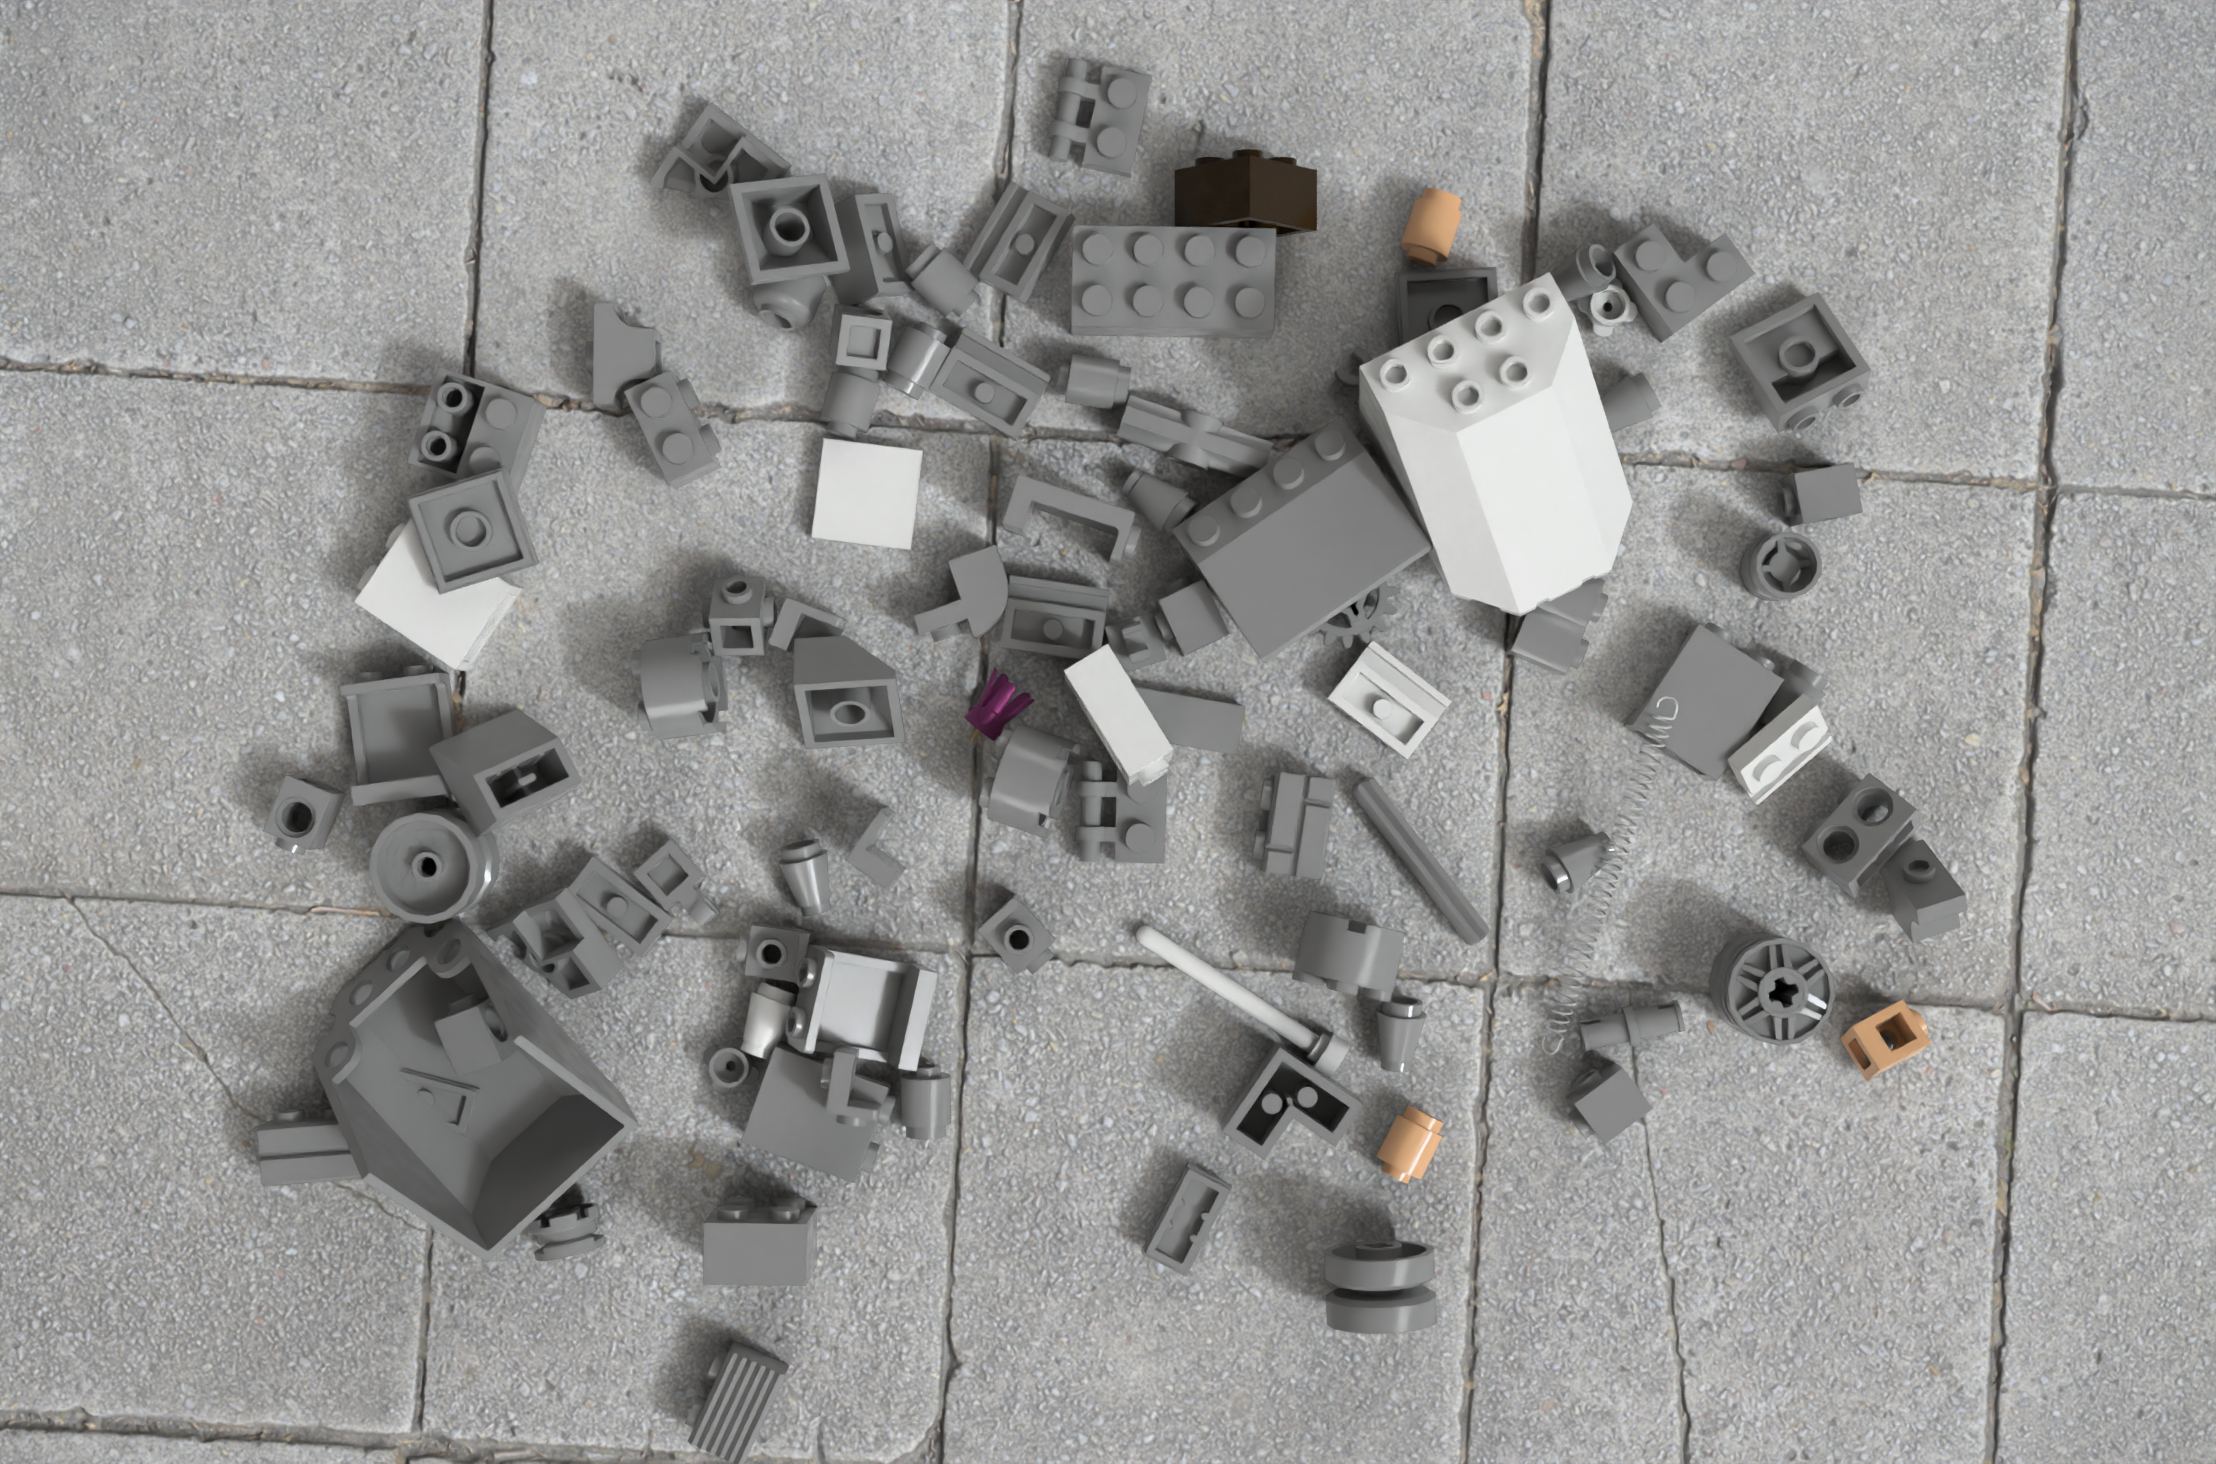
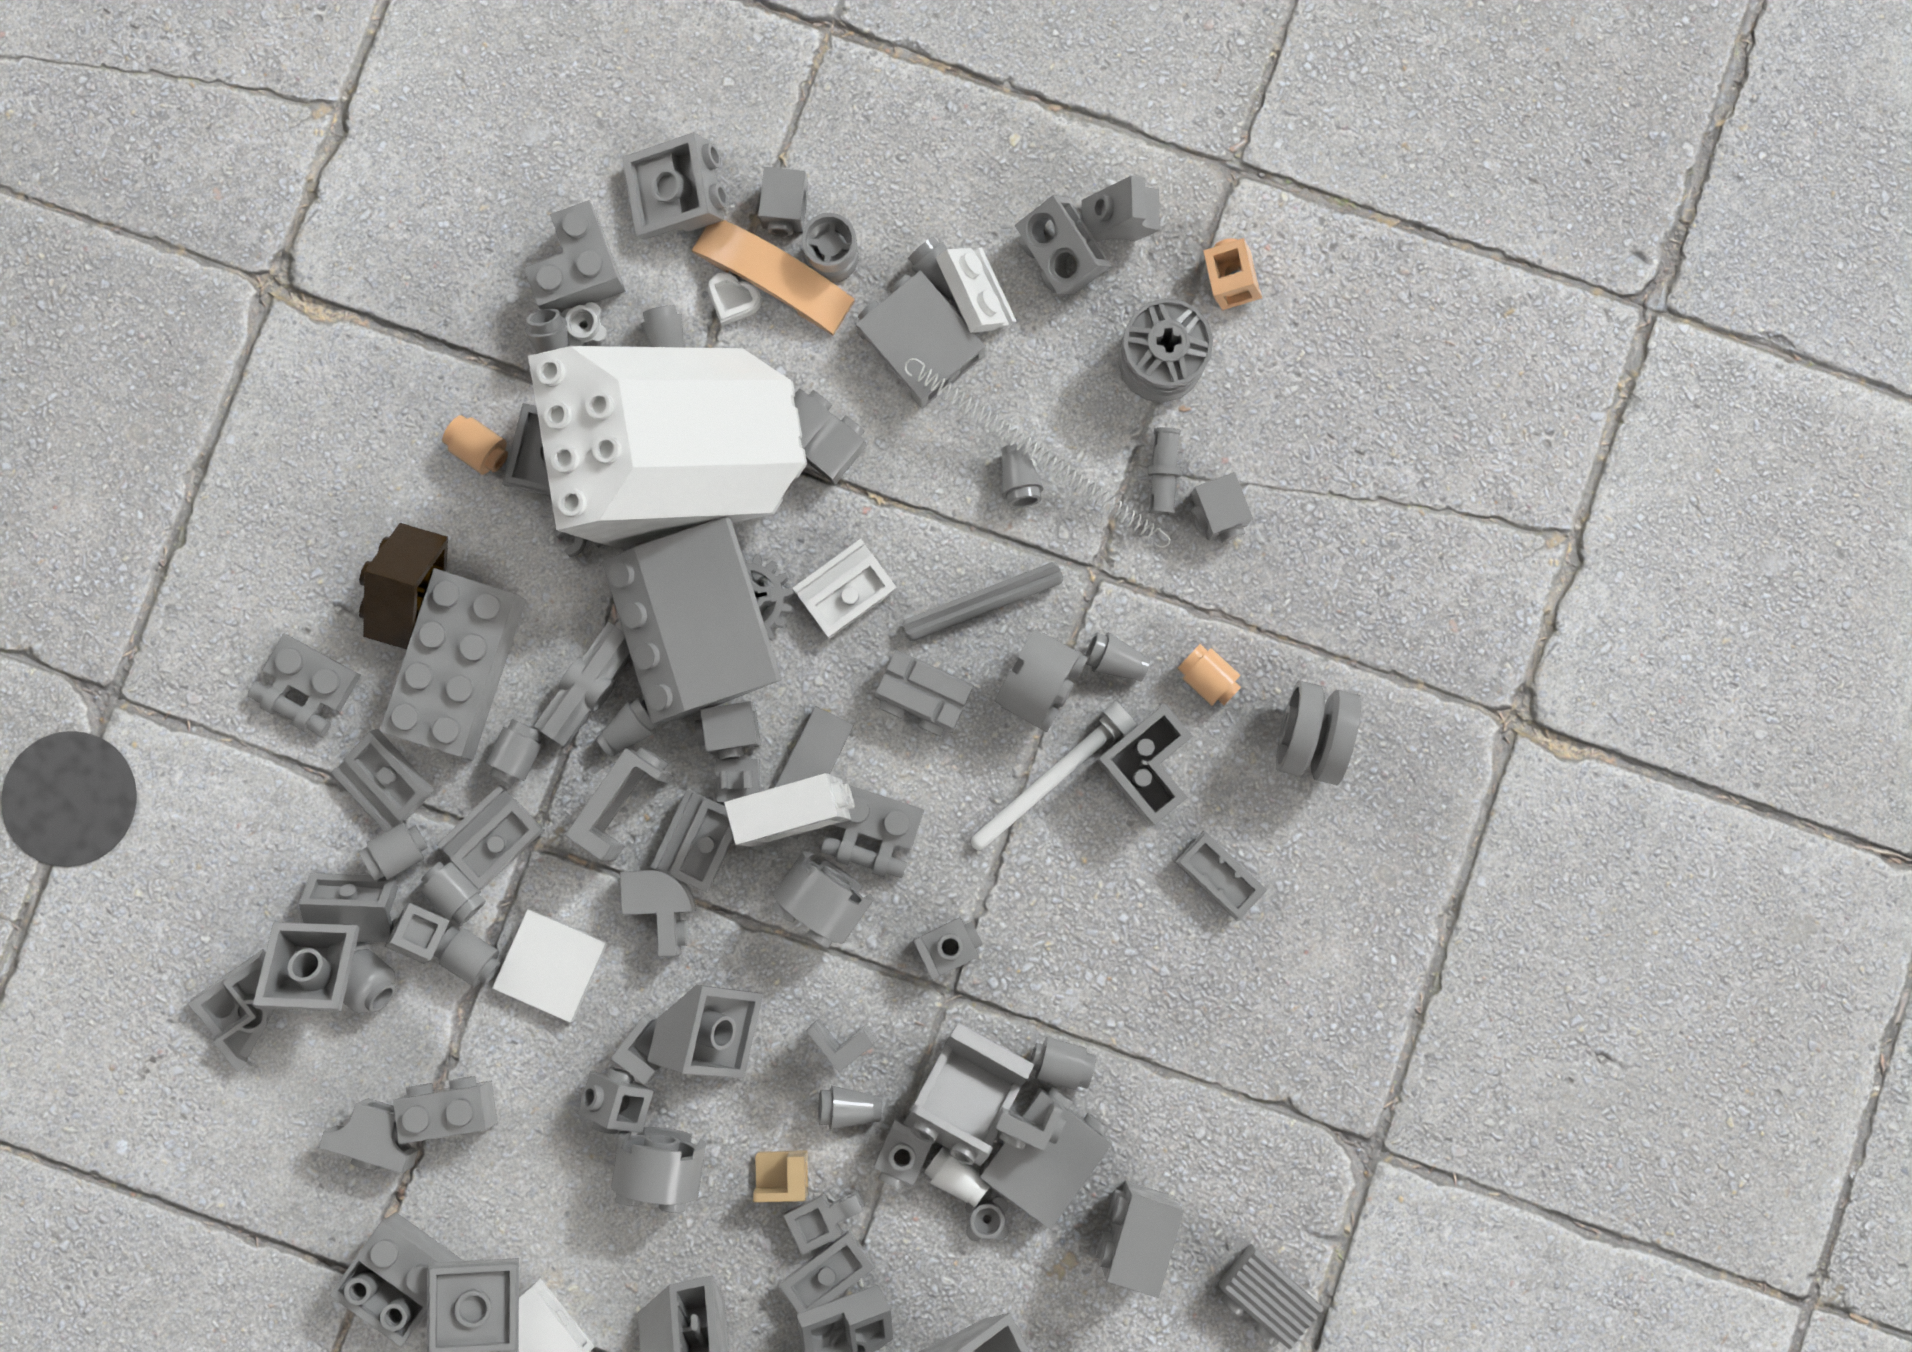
camera: 65 degrees left, 5 degrees down
(711, 823) = (781, 1176): none -> tan panel
(990, 712) = (757, 918): flat silver piece -> none
(1688, 469) = (732, 298): none -> white tile
(1732, 509) = (775, 273): none -> light nougat slope

